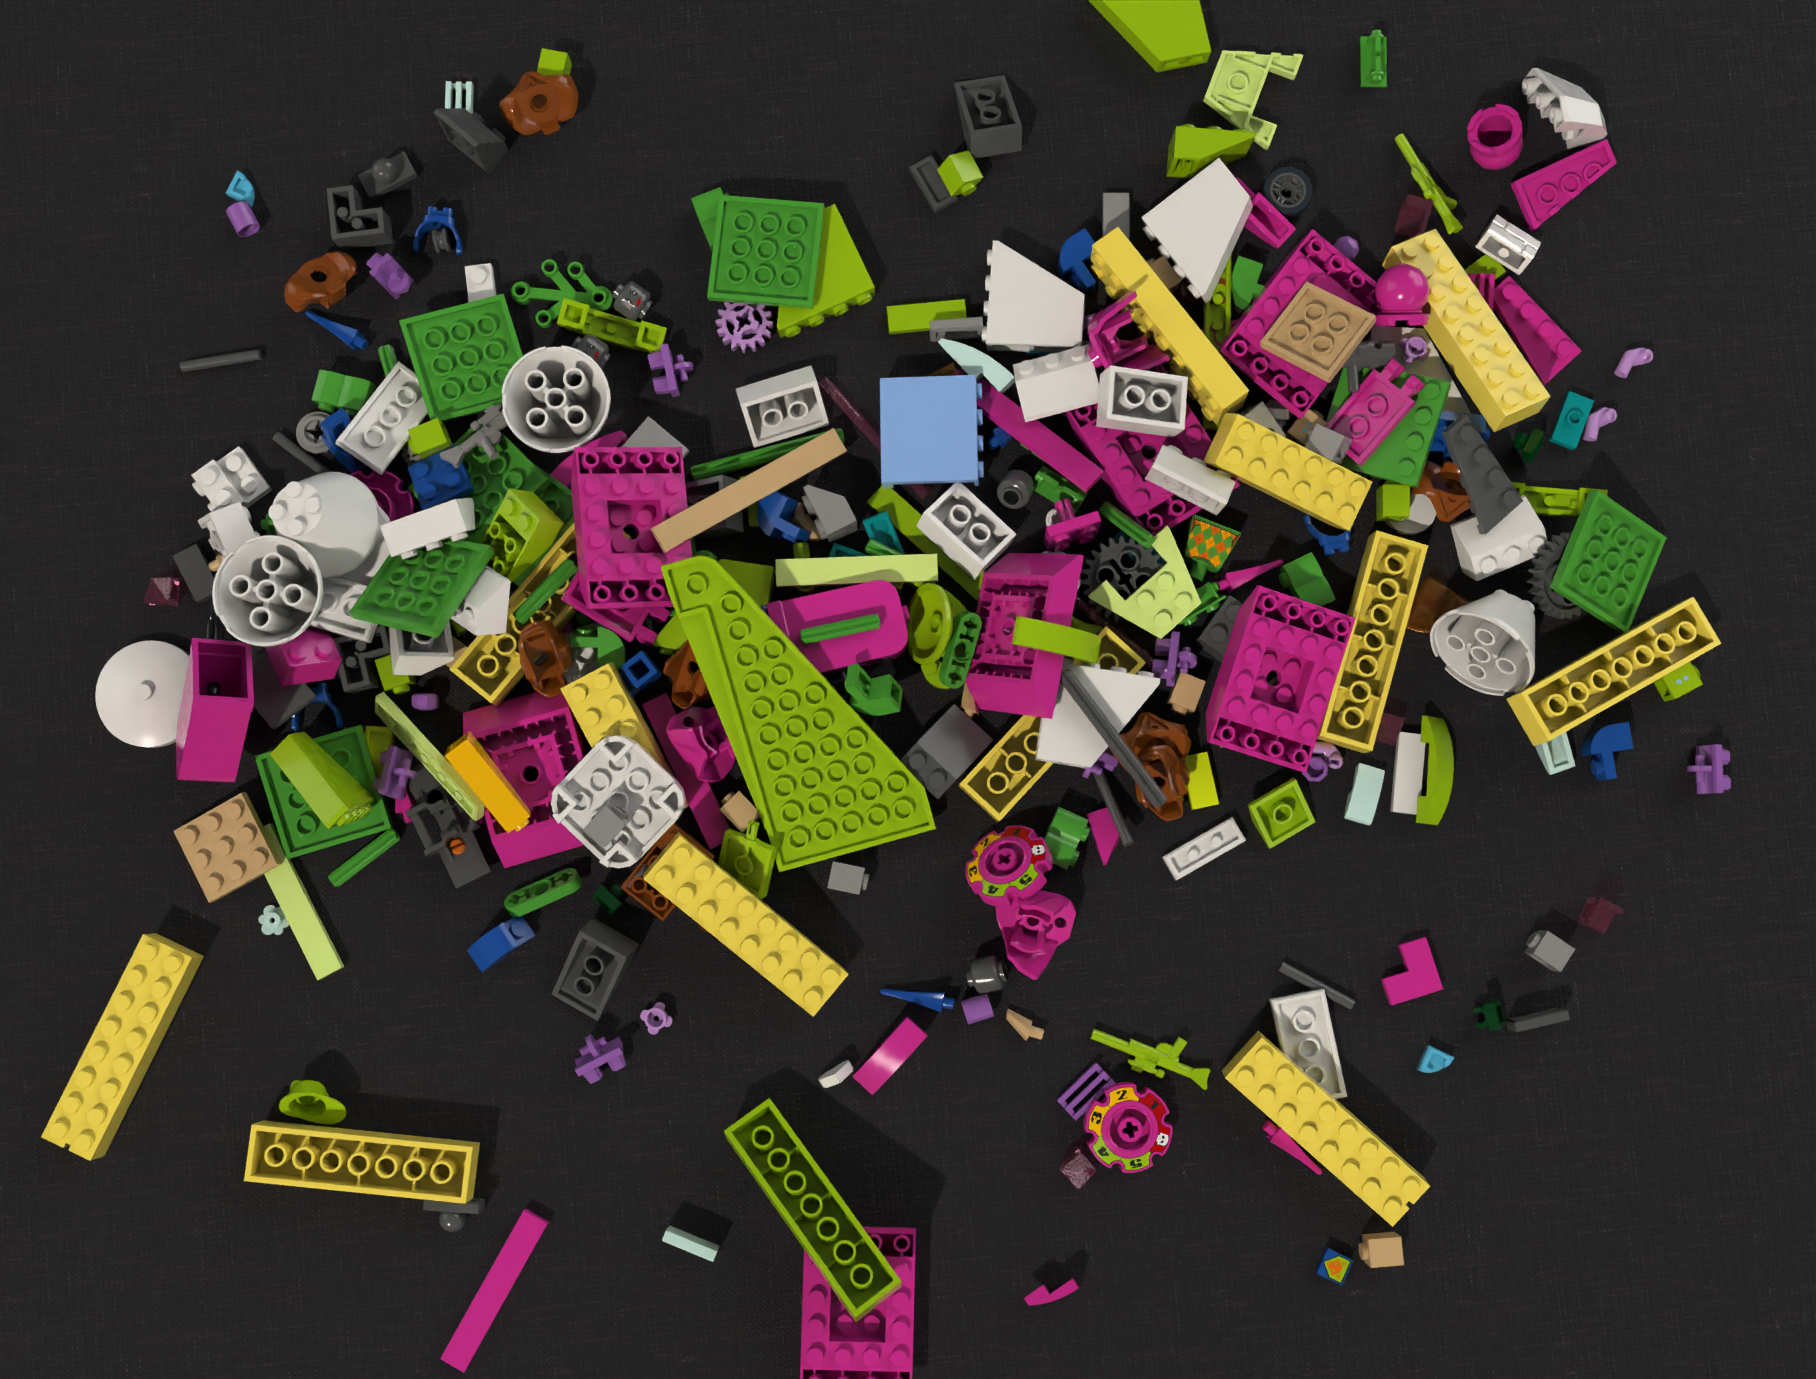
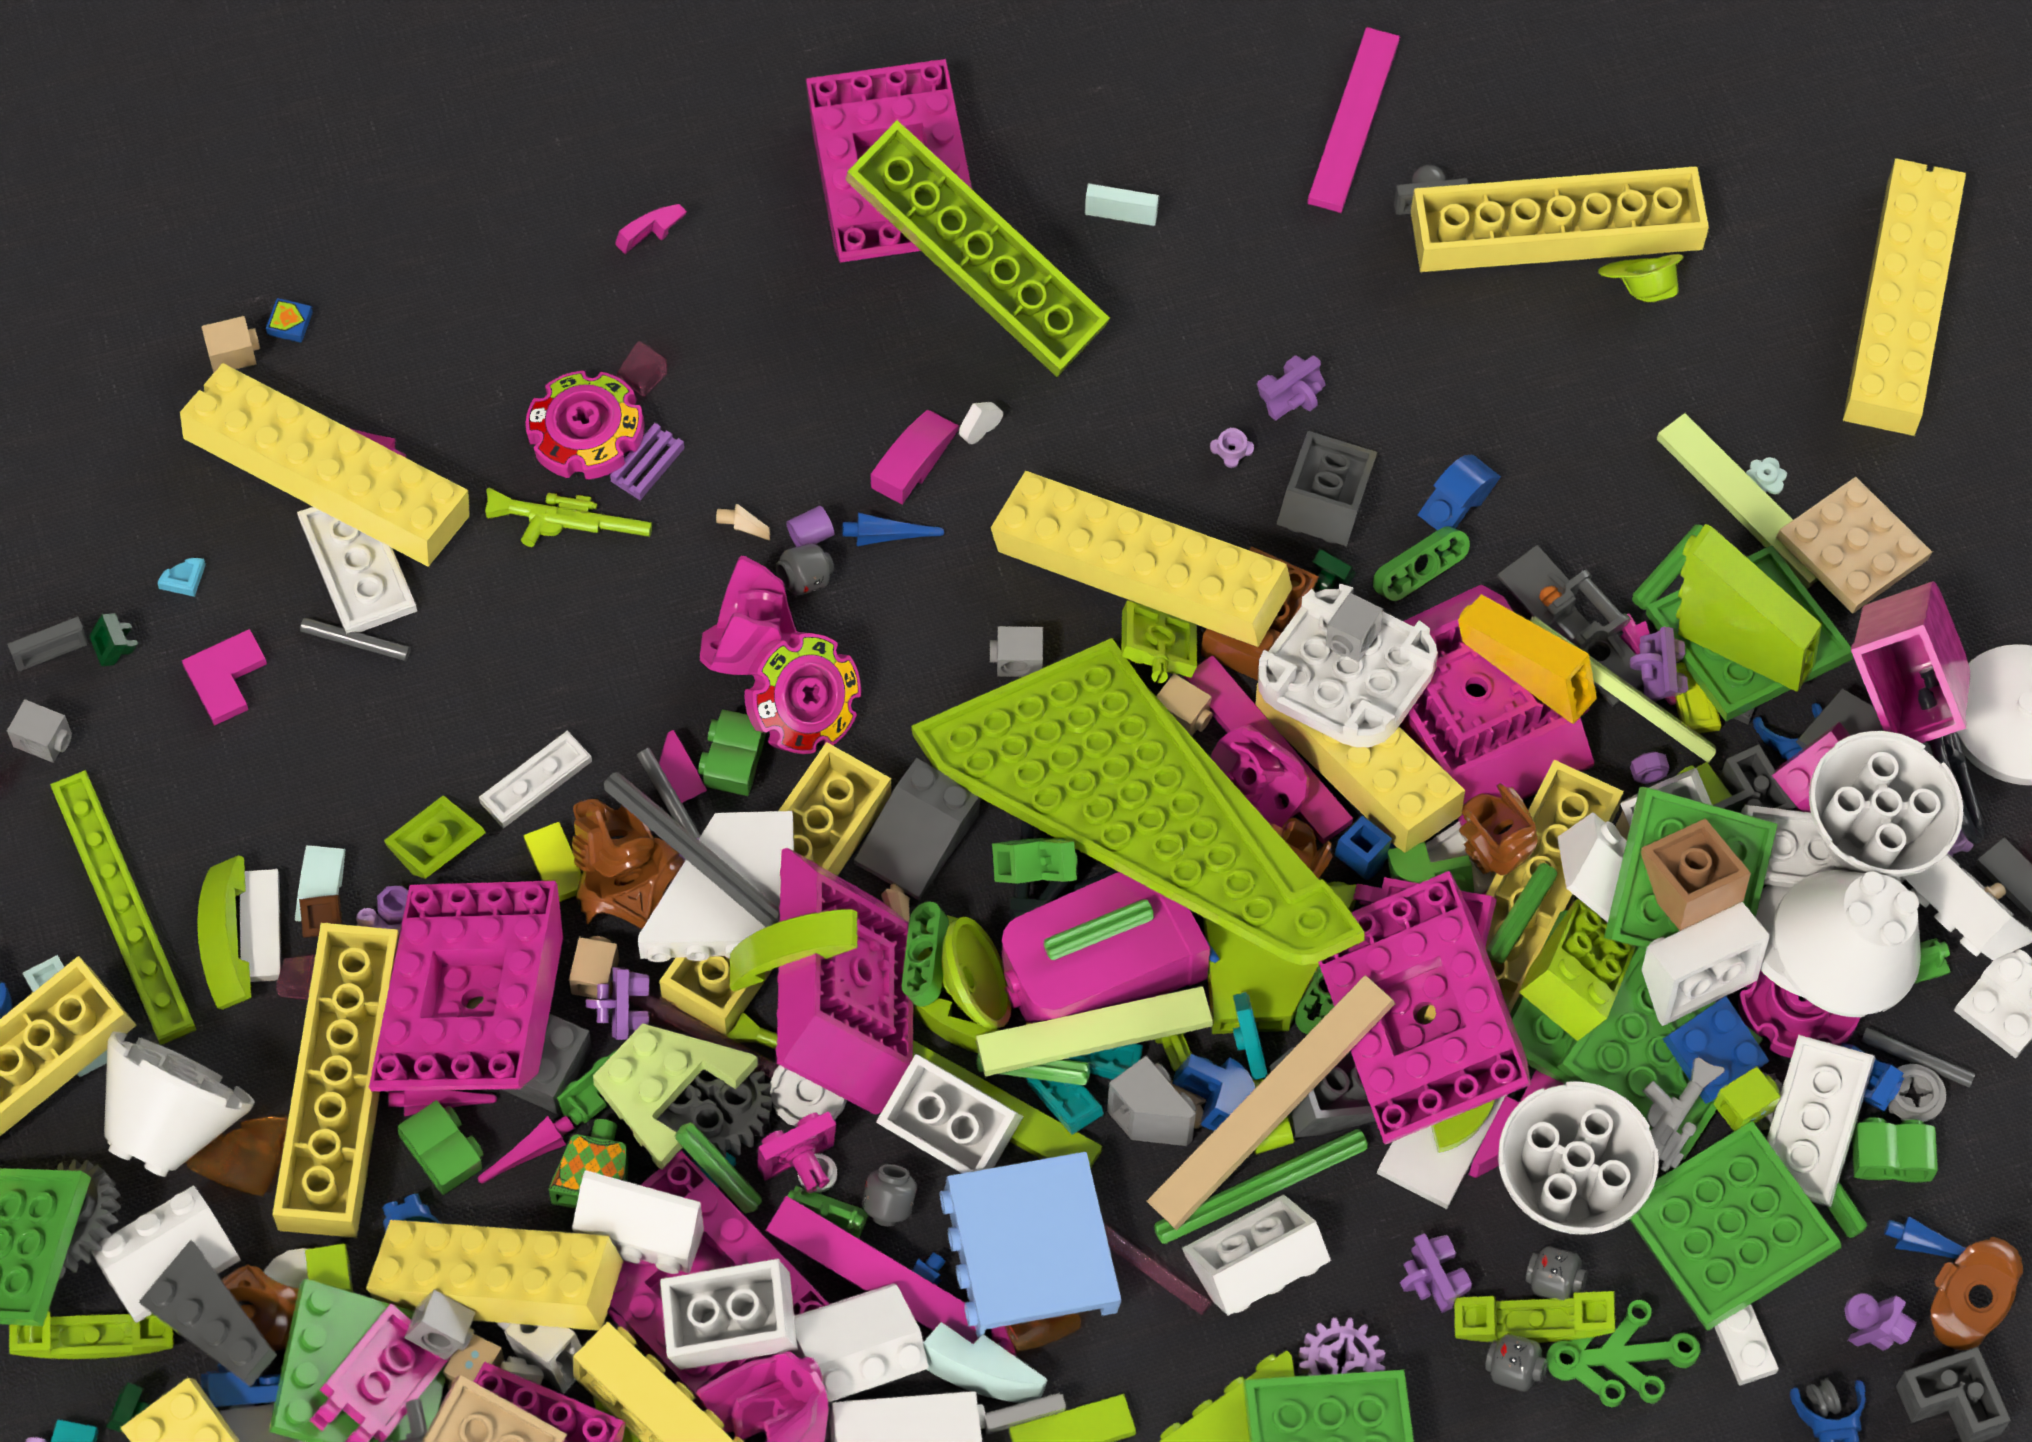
camera: 170 degrees right, 20 degrees down
(418, 574) = (1694, 874): none -> medium nougat slope
(753, 548) = (1247, 1036): none -> teal plate
(1367, 767) = (318, 911): none -> reddish brown tile
(1501, 808) = (123, 907): none -> lime tile

